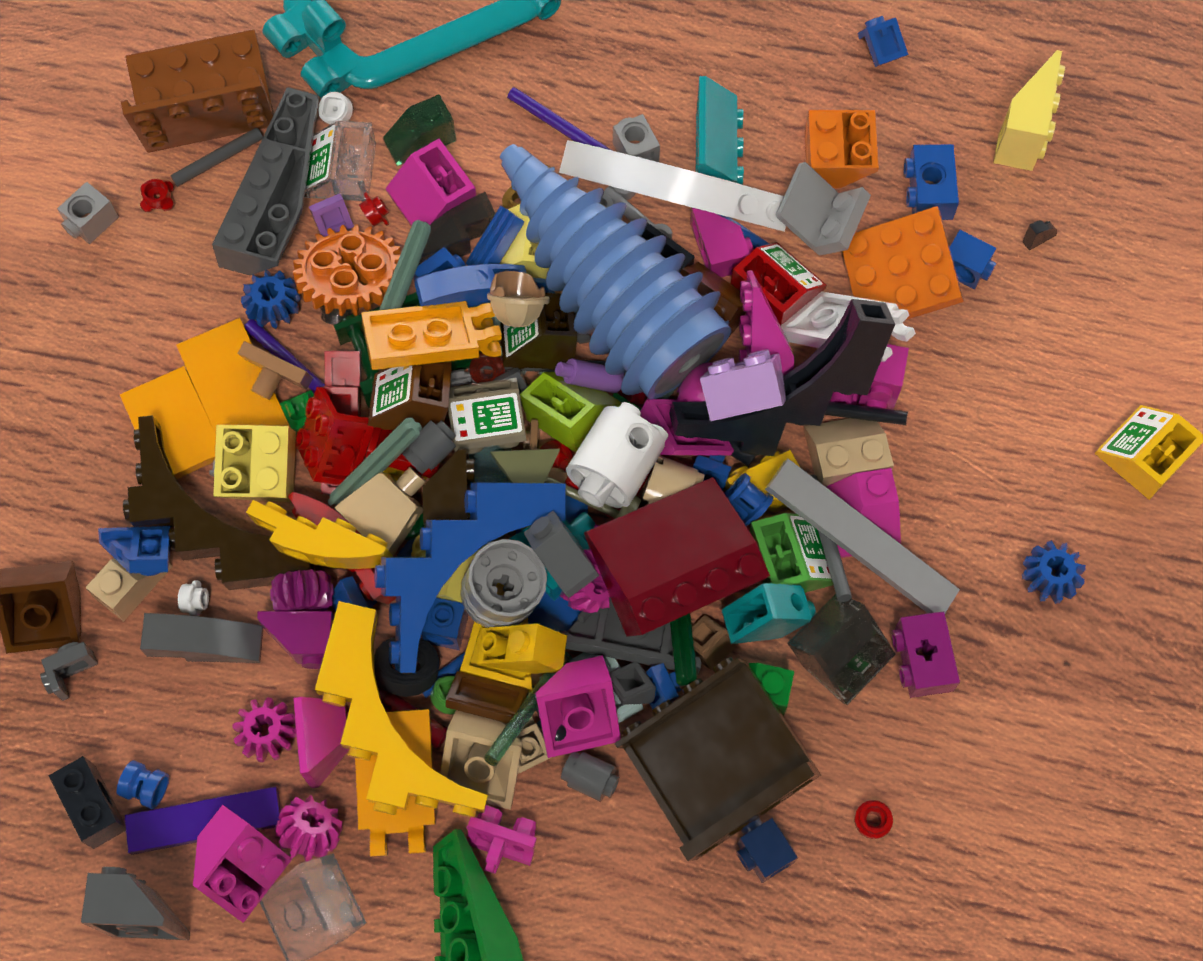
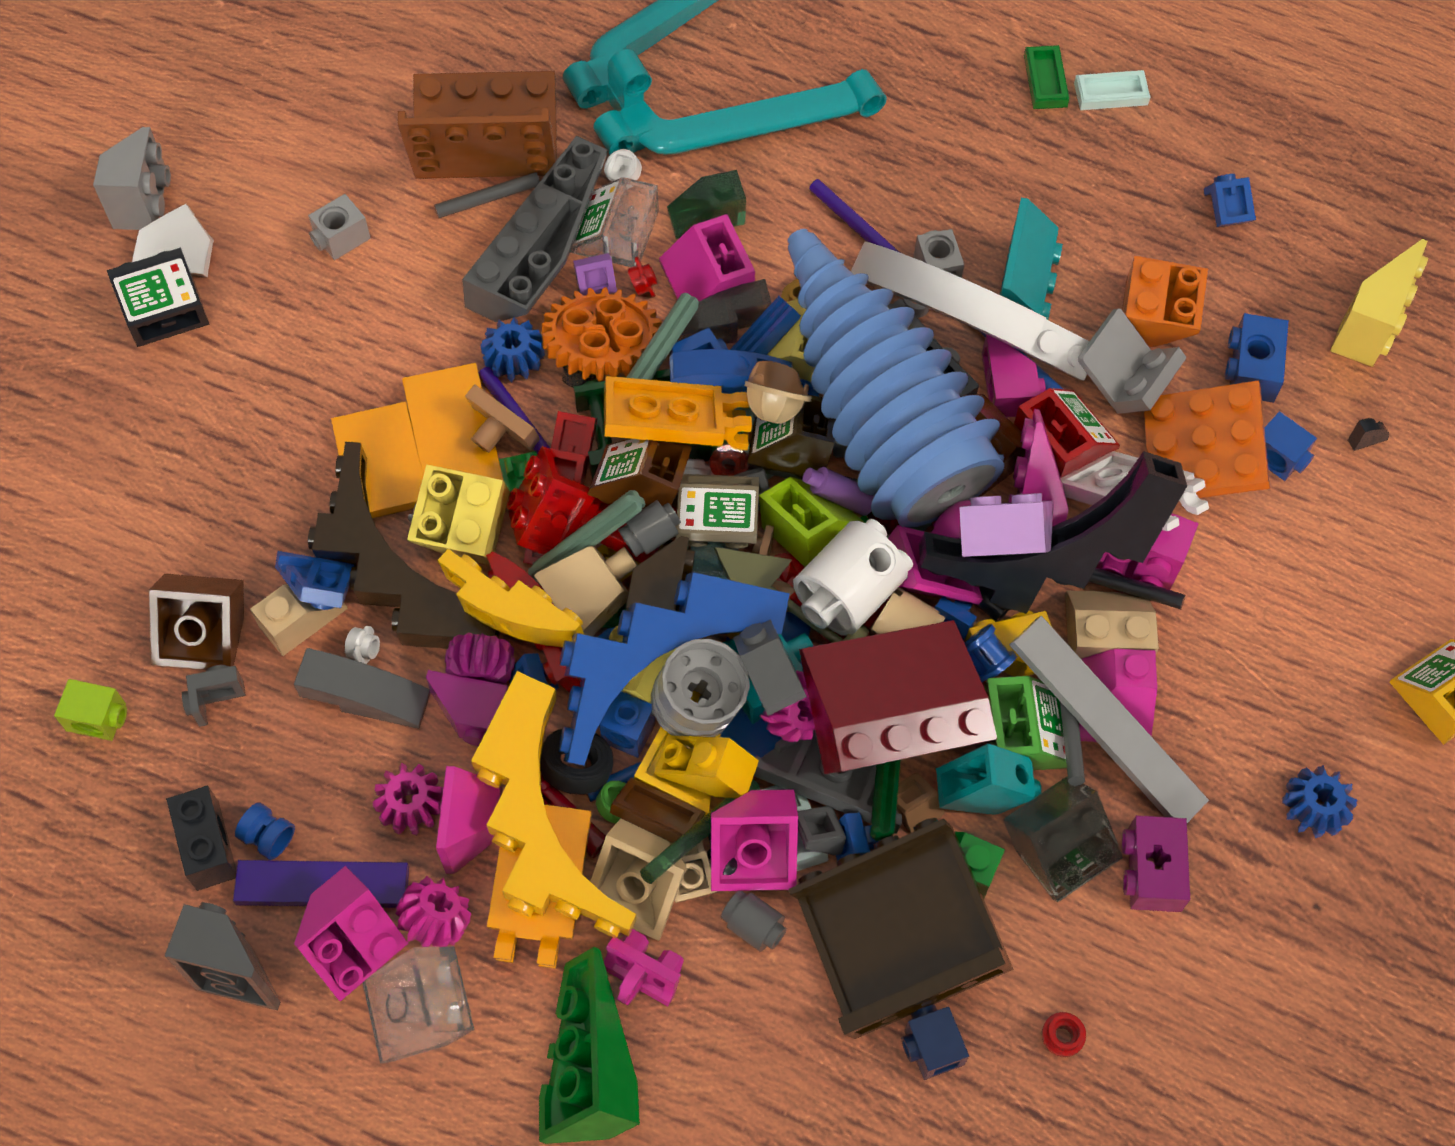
camera: 10 degrees right, 5 degrees down
(156, 187) = (415, 214): red plate -> none

